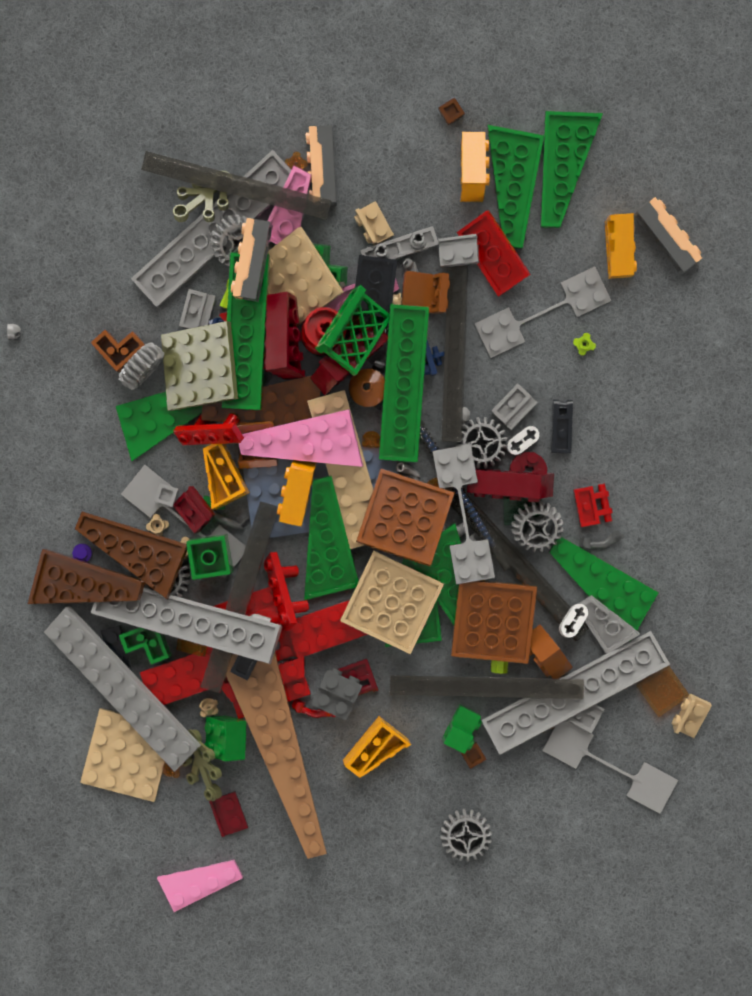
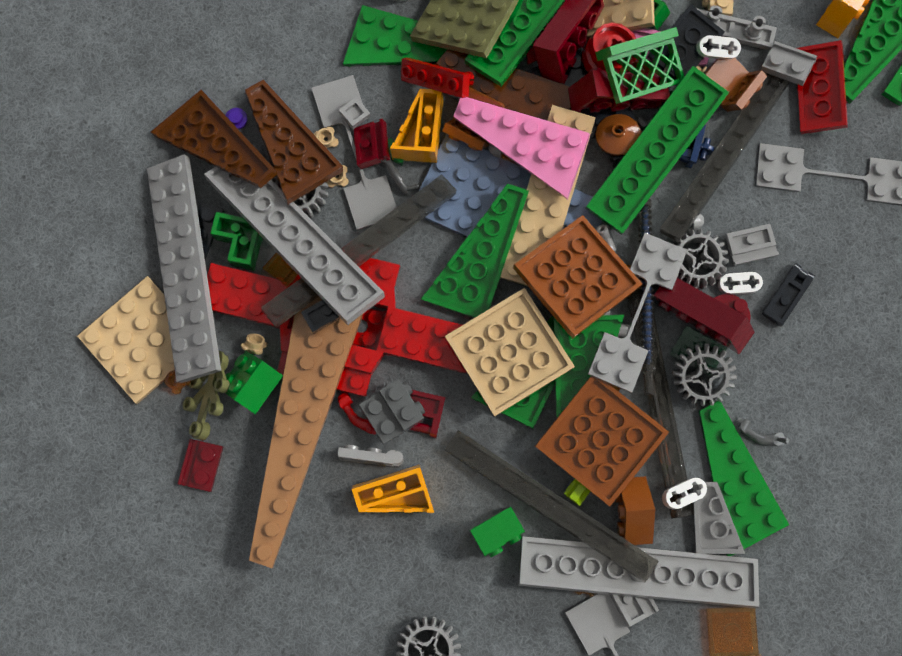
camera: 25 degrees right, 10 degrees down
(192, 885) = (113, 514): bright pink wing -> none
(209, 556) = (357, 194): green brick -> none
(281, 598) = (400, 278): red plate -> none
(296, 492) = (483, 185): light orange wedge -> none
(343, 731) = (371, 456): none -> light grey hinge
(371, 439) = (588, 187): clear orange plate -> none
(402, 279) = (719, 42): none -> white beam
(474, 756) = (490, 569): reddish brown plate -> none
(578, 342) = (854, 233): lime plate -> none
(587, 506) = (766, 390): red plate -> none

